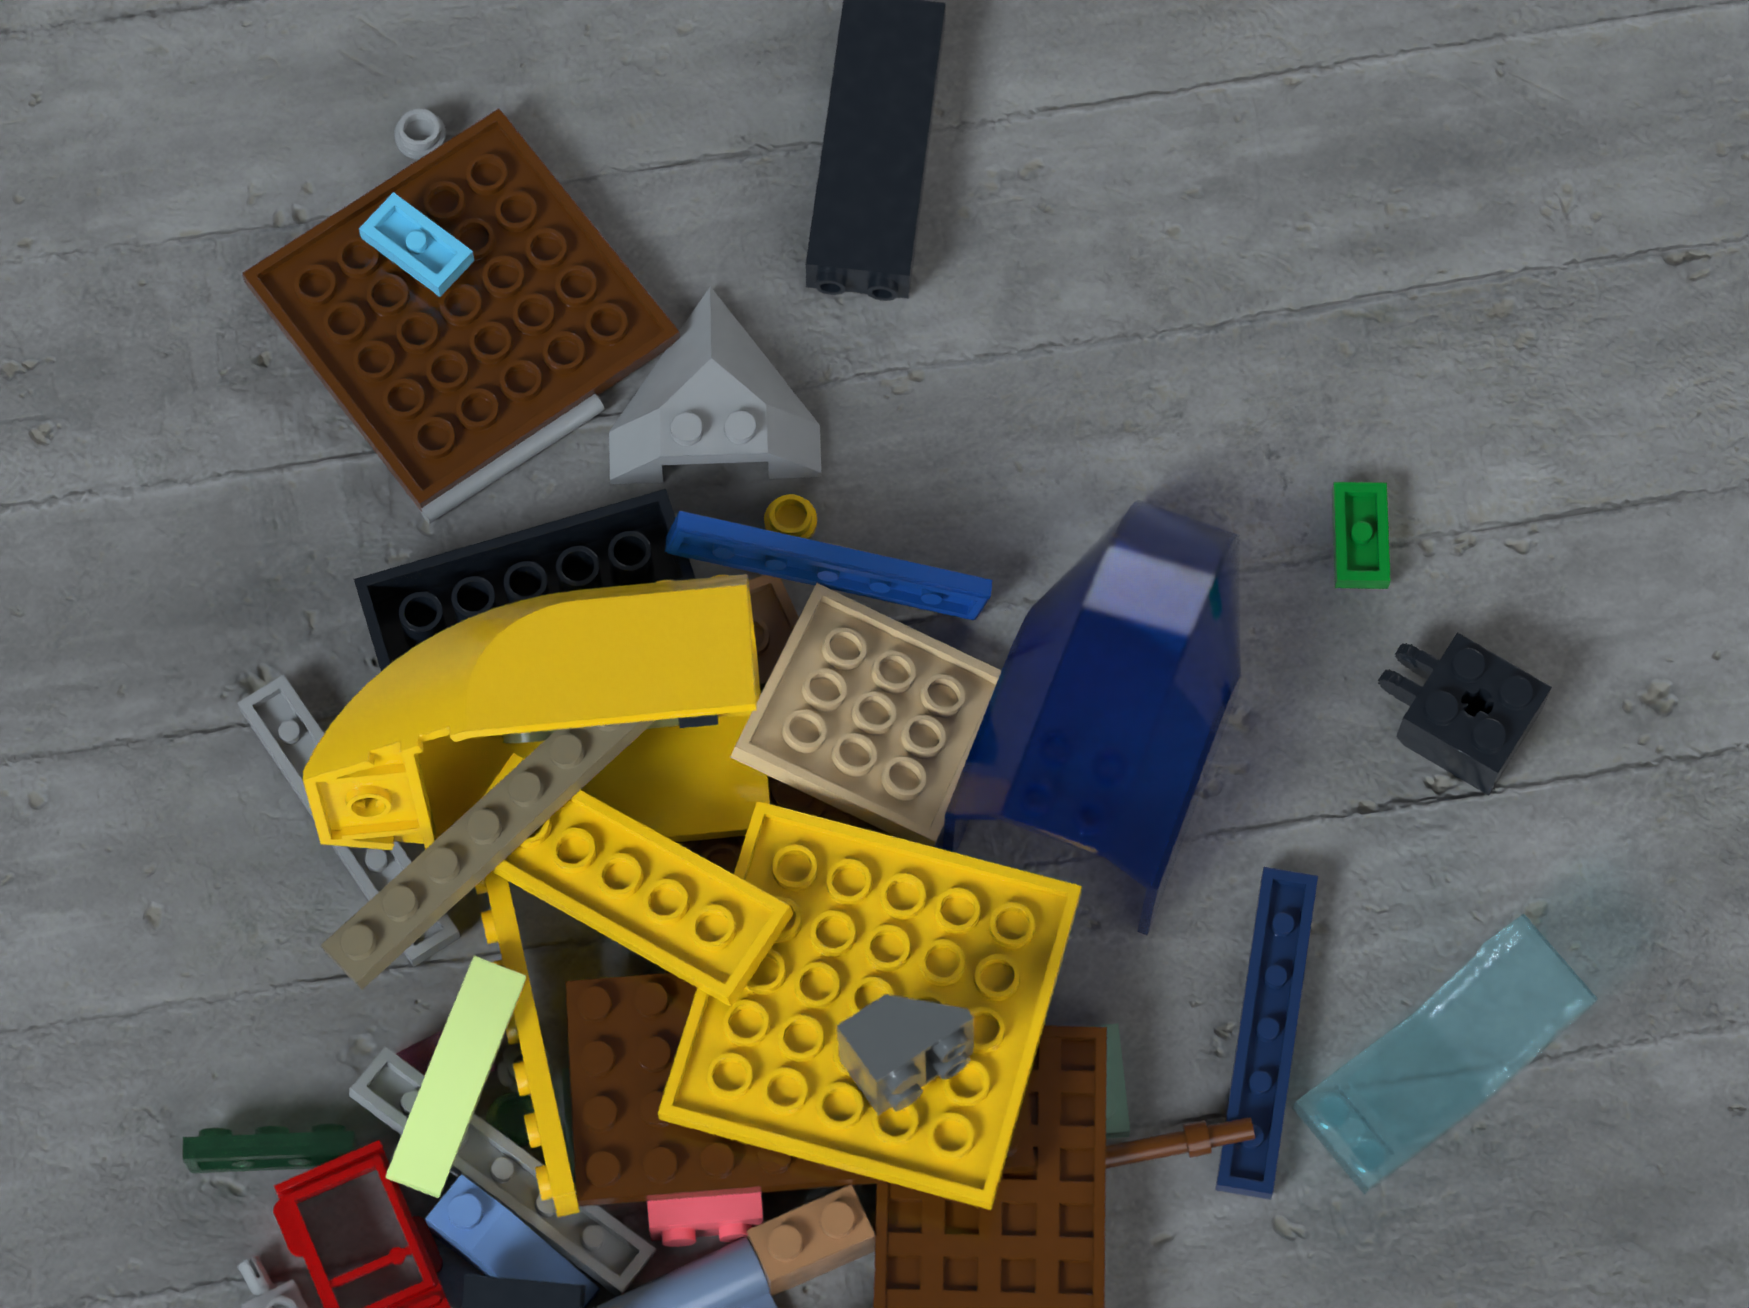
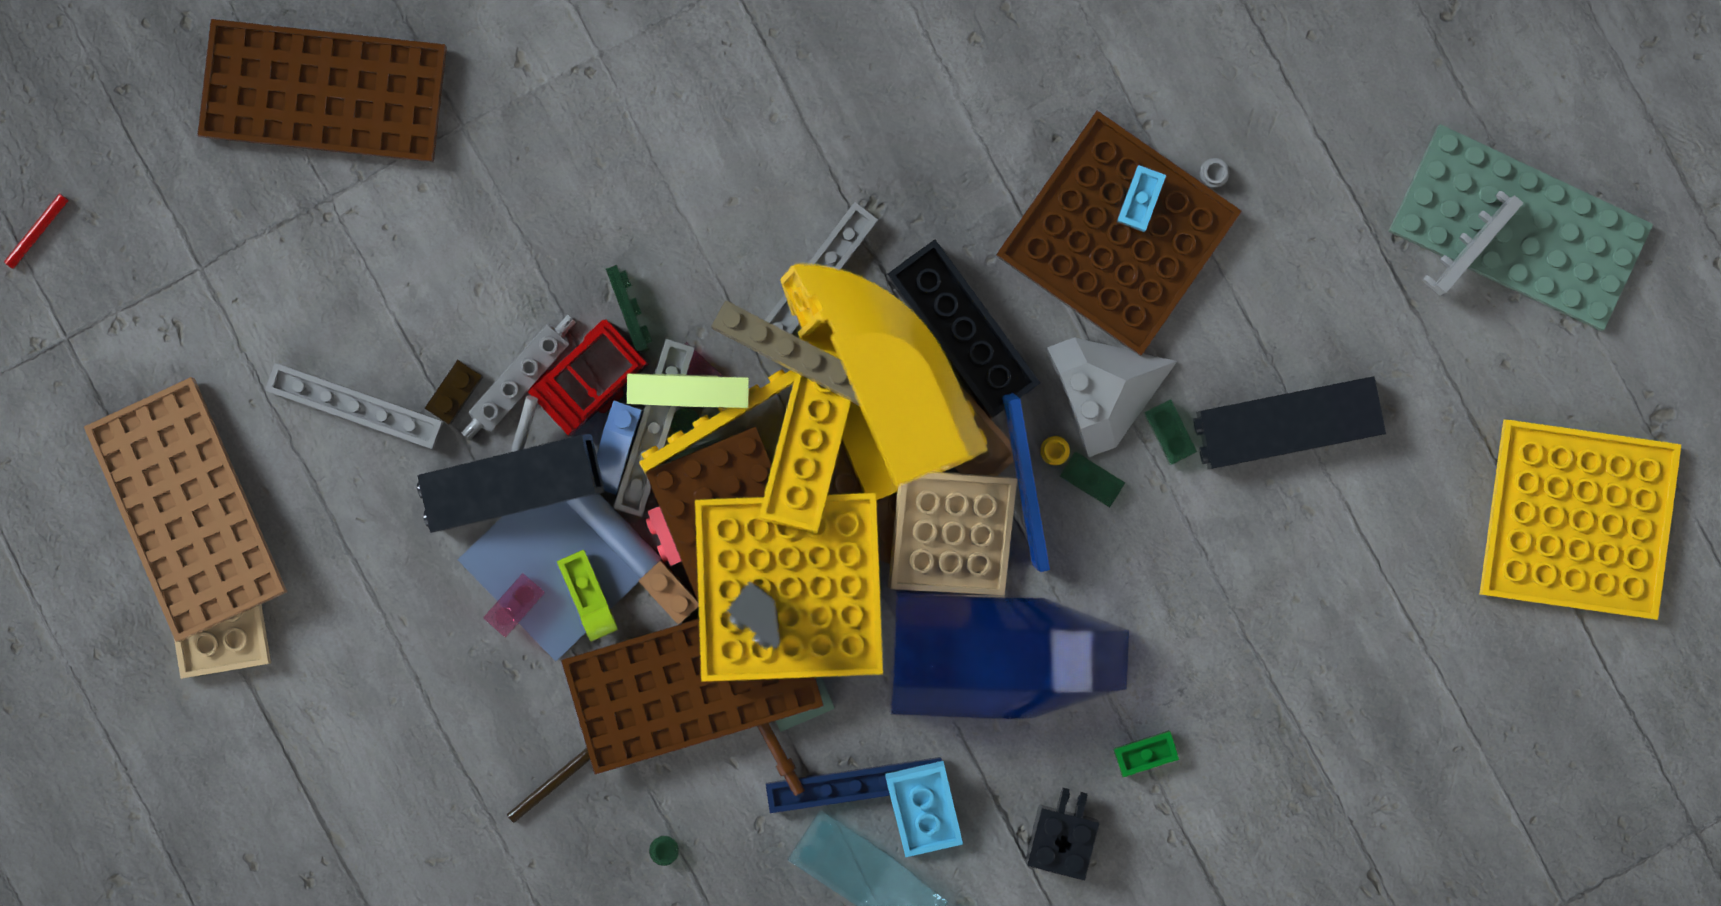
camera: 65 degrees right, 20 degrees up
(513, 458) = (1045, 295): light grey bar -> none
(825, 330) = (1170, 432): none -> clear green plate
(861, 478) = (1092, 479): none -> clear green plate
(1345, 920) = (924, 809): none -> medium azure plate

